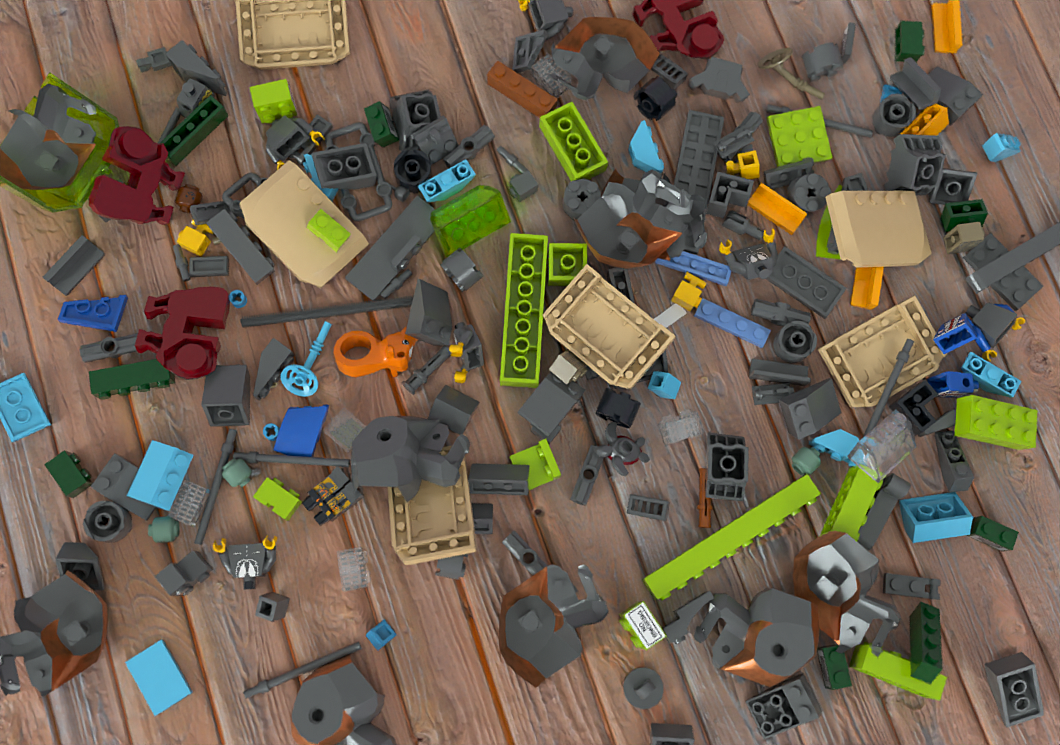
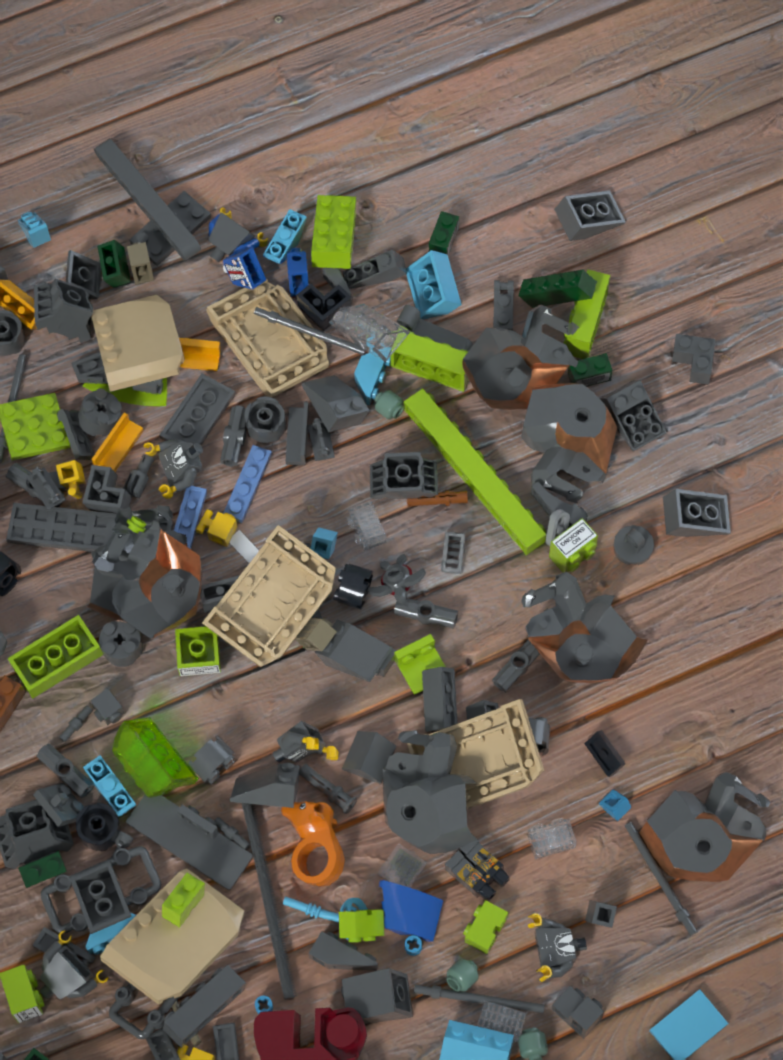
camera: 85 degrees left, 10 degrees down
(255, 457) = (443, 961): dark grey bar -> none
(290, 385) = (361, 924): none -> lime brick
(429, 631) = (605, 753): none -> black plate
(524, 310) = (253, 691): lime brick -> none
(644, 151) = (57, 583): medium azure slope -> none
(664, 611) = (557, 525): none -> light grey plate
(688, 212) = (136, 524): none -> lime plate

